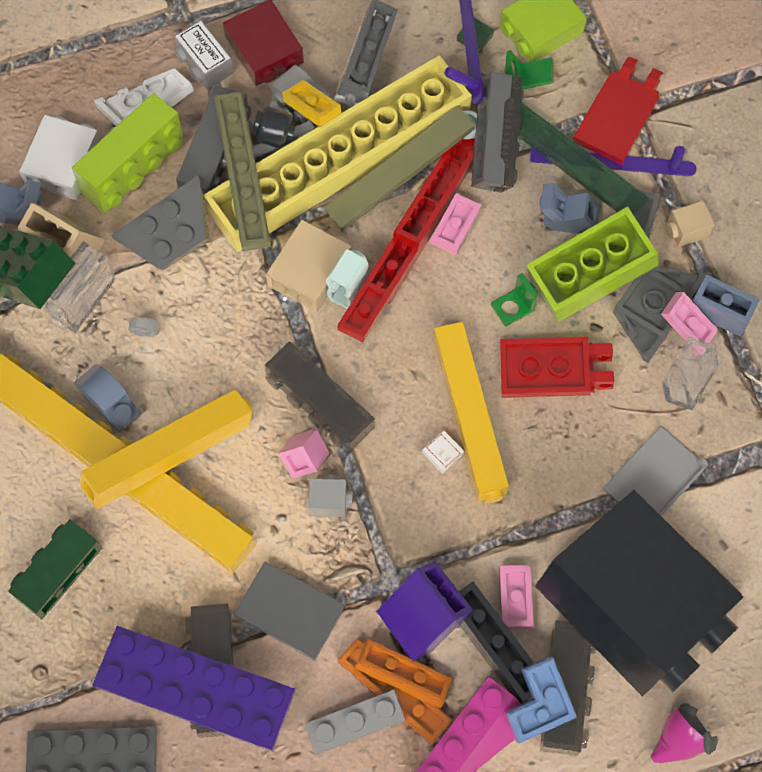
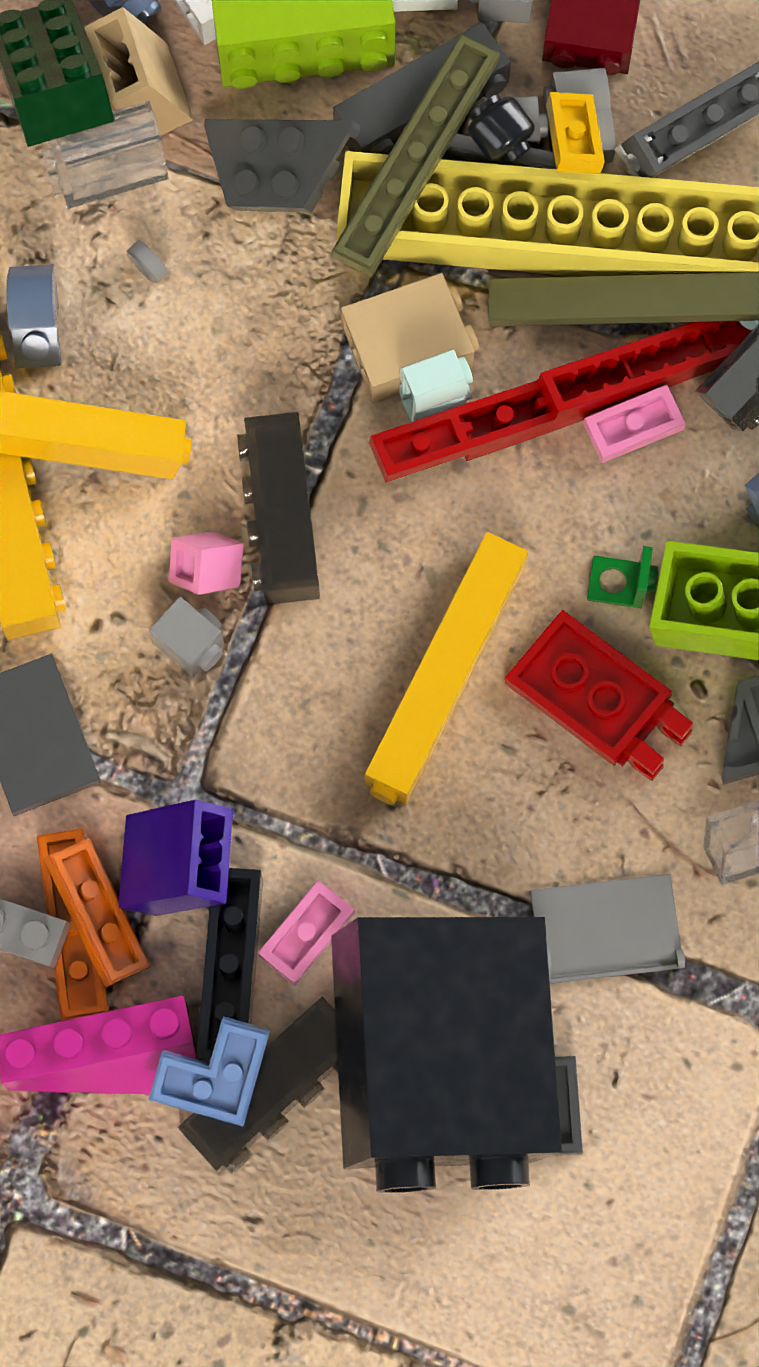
camera: 40 degrees right, 5 degrees up
(443, 452) = (373, 692): white tile -> none
(683, 737) = (357, 1255): dark pink hat -> none

